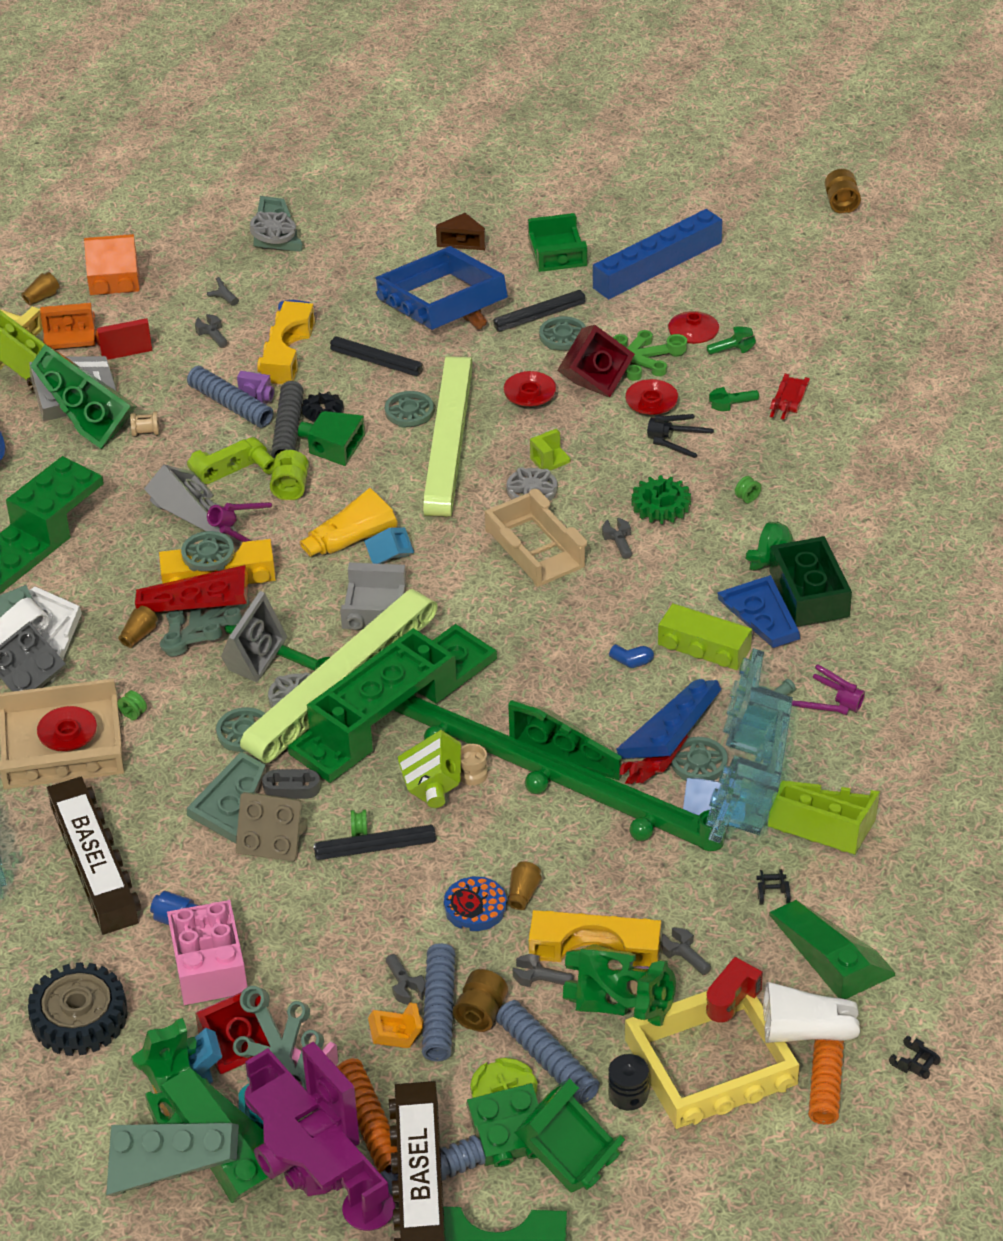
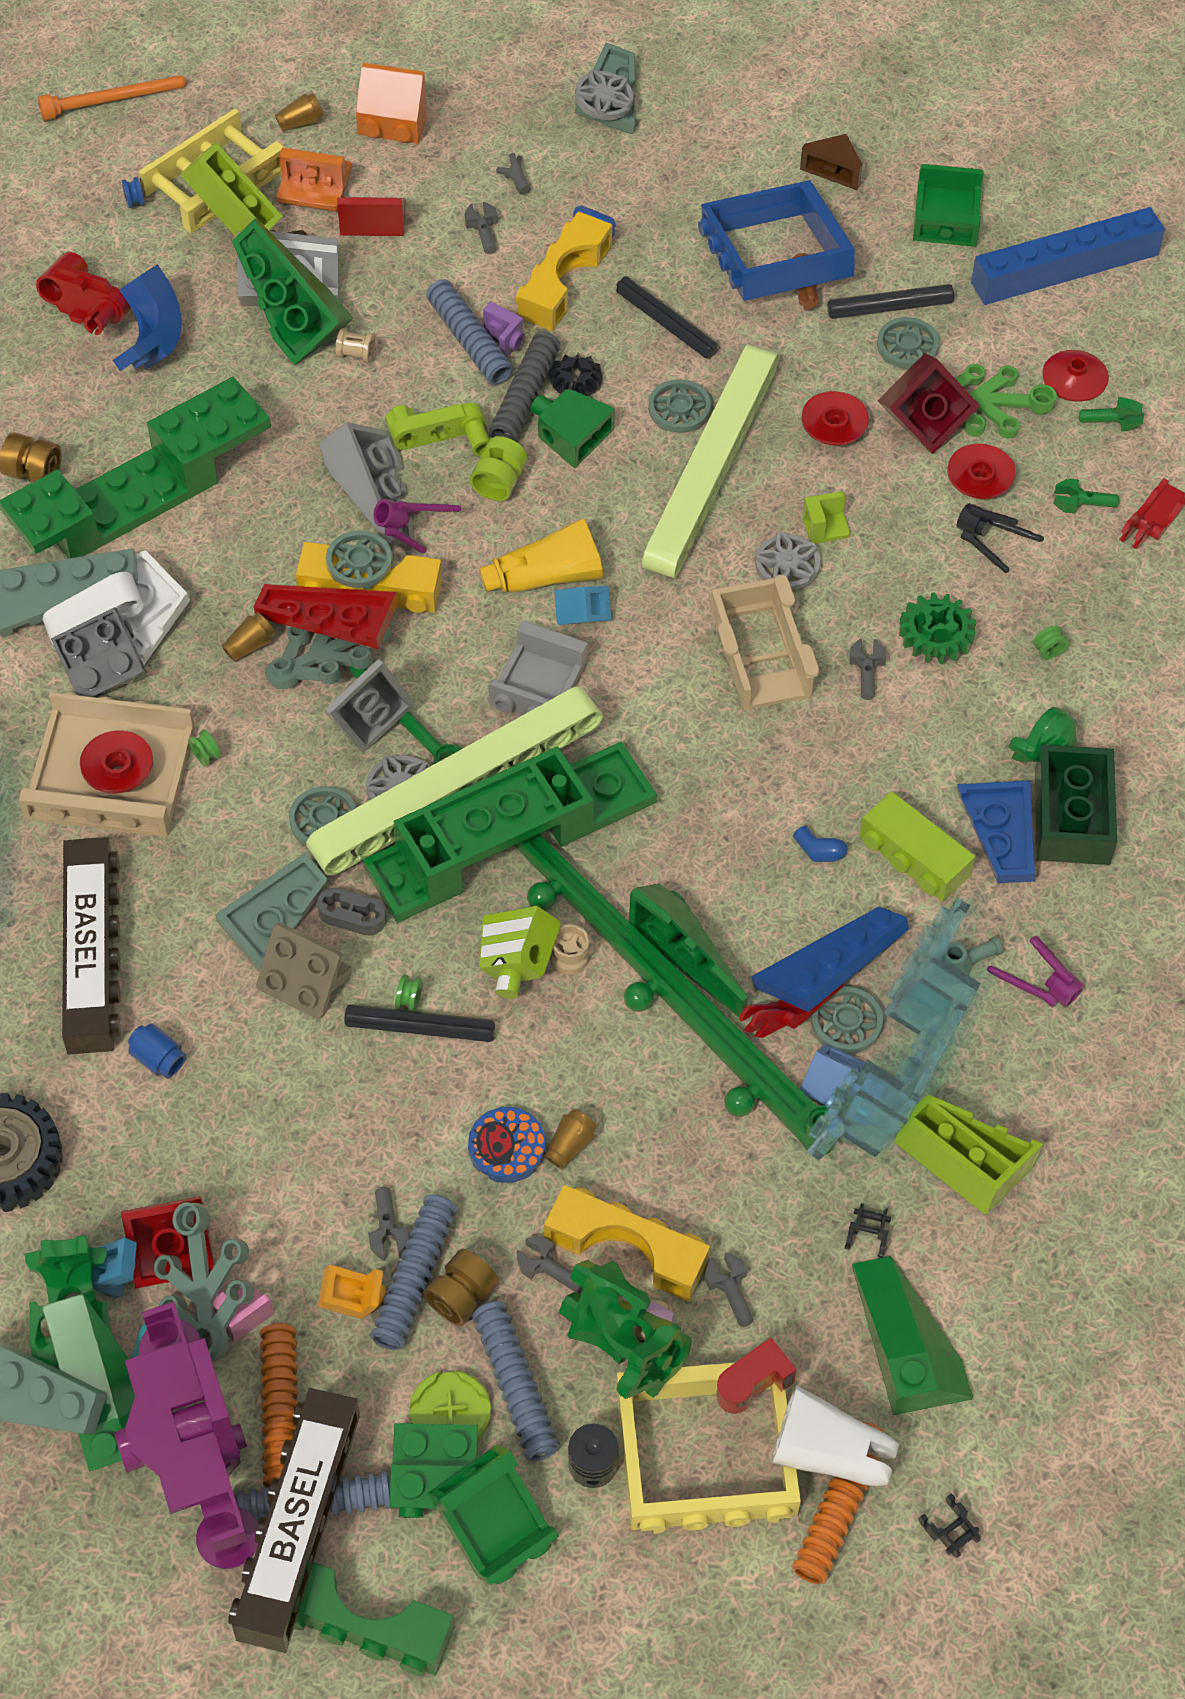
camera: 15 degrees right, 15 degrees up
(207, 952) = (170, 1121): bright pink slope -> none

